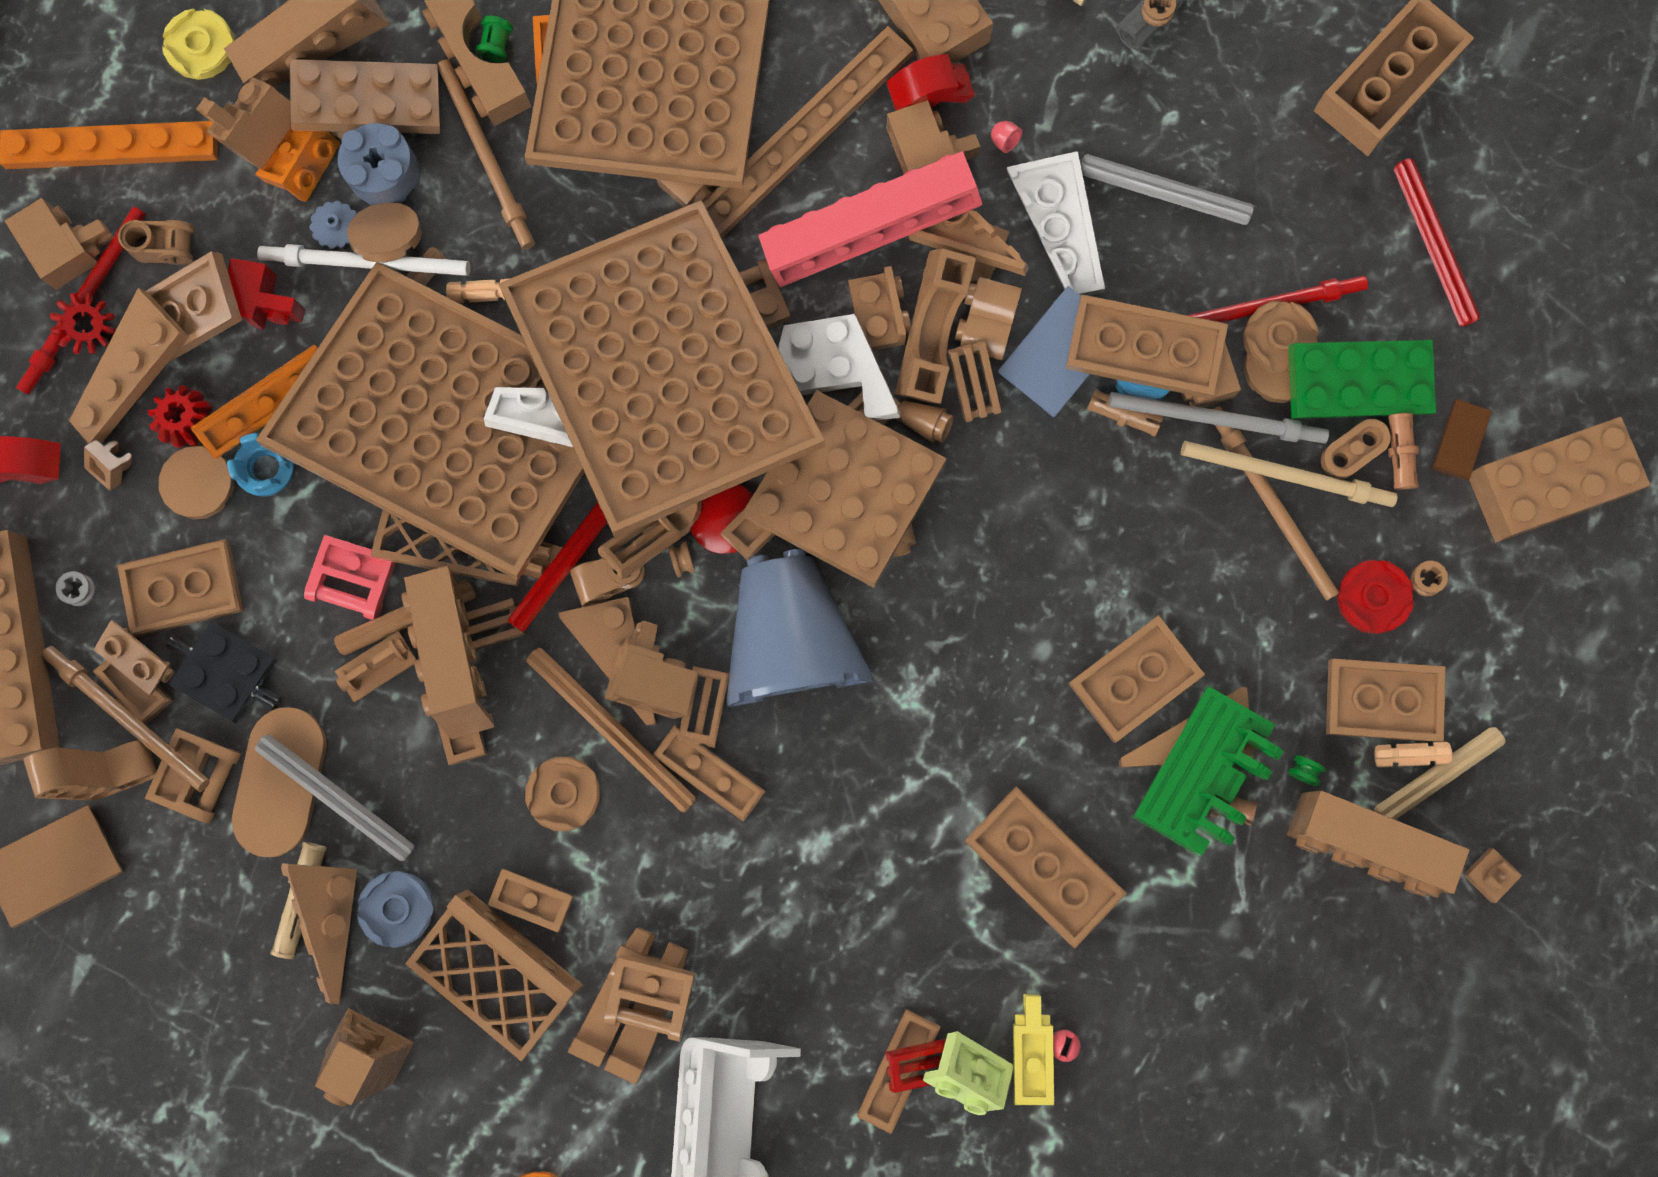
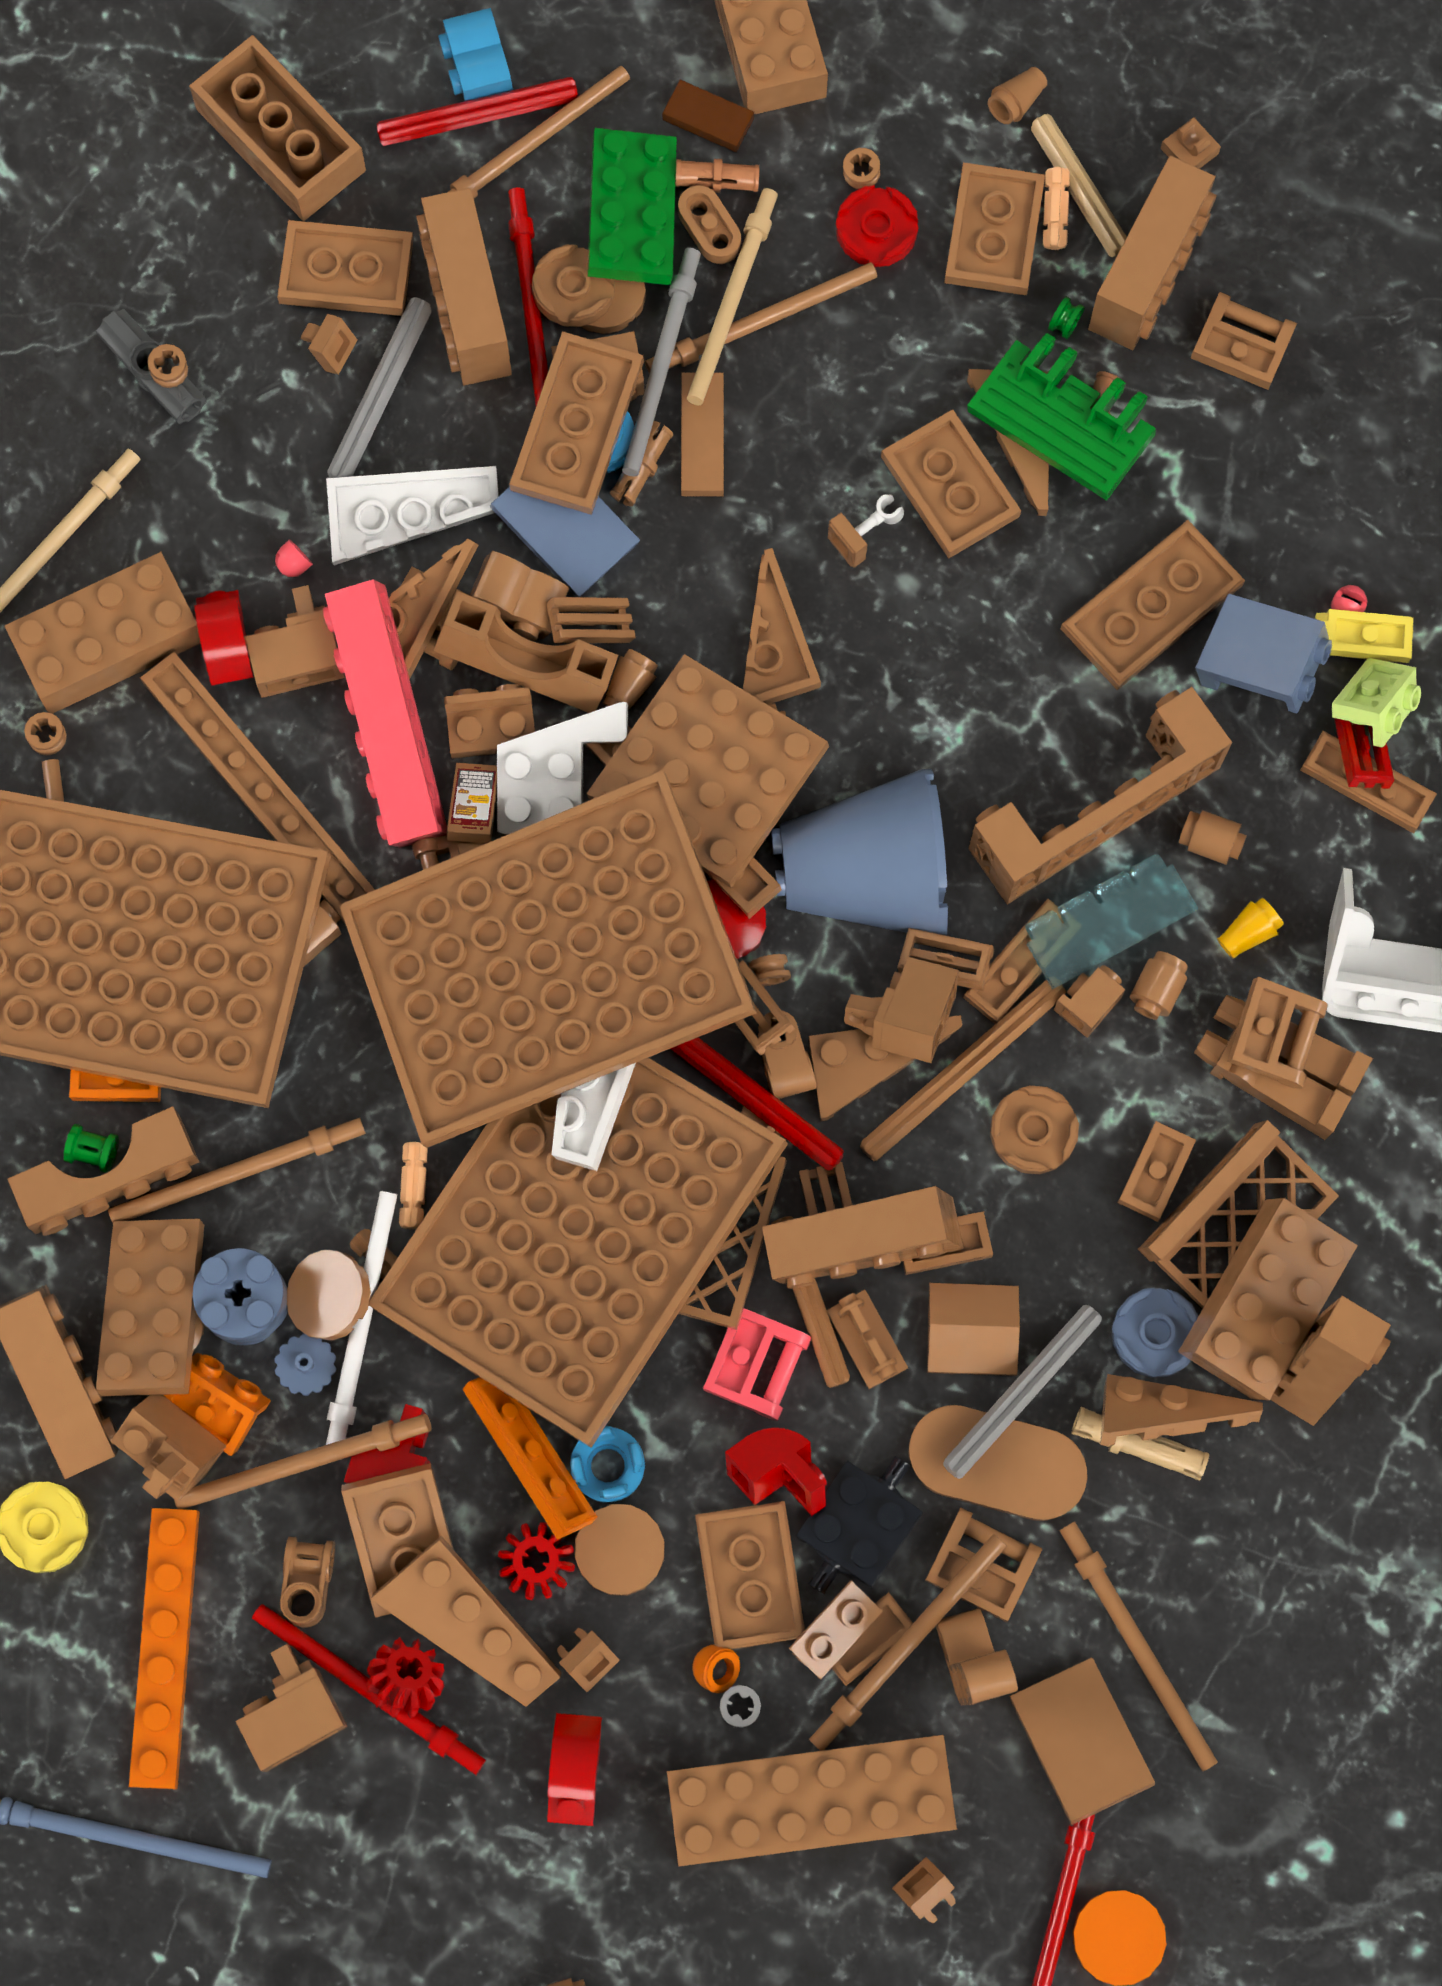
camera: 90 degrees left, 5 degrees down
(111, 560) = (705, 1662): none -> orange piece
(194, 866) = (1092, 1566): none -> medium nougat bar
(260, 279) = (383, 1437): none -> medium nougat bar
(267, 596) = (776, 1459): none -> red brick
(391, 753) = (973, 1329): none -> medium nougat slope
(418, 1002) = (1268, 1299): none -> medium nougat brick
(676, 834) = (1091, 999): none -> medium nougat brick
(693, 892) = (1159, 985): none -> medium nougat brick
(738, 840) = (1105, 929): none -> clear light blue windscreen
(753, 972) = (1252, 927): none -> yellow cone
(803, 301) = (472, 803): none -> tile
(832, 932) = (1212, 836): none -> medium nougat brick
(911, 903) = (1190, 750): none -> medium nougat plate
(963, 543) = (778, 653): none -> medium nougat wing
(1002, 968) = (1264, 651): none -> sand blue panel
(1072, 592) = (847, 540): none -> medium nougat tile
(1098, 618) = (879, 516): none -> white hand
(1153, 463) = (703, 440): none -> medium nougat tile
(1202, 142) = (330, 342): none -> medium nougat tile
(1265, 242) = (463, 287): none -> medium nougat brick
(1274, 148) = (345, 268): none -> medium nougat plate
(1294, 932) = (1238, 350): none -> medium nougat plate
(1361, 240) = (542, 132): none -> medium nougat bar
(1488, 234) = (476, 54): none -> dark azure brick
(1520, 711) = (1015, 96): none -> medium nougat cone

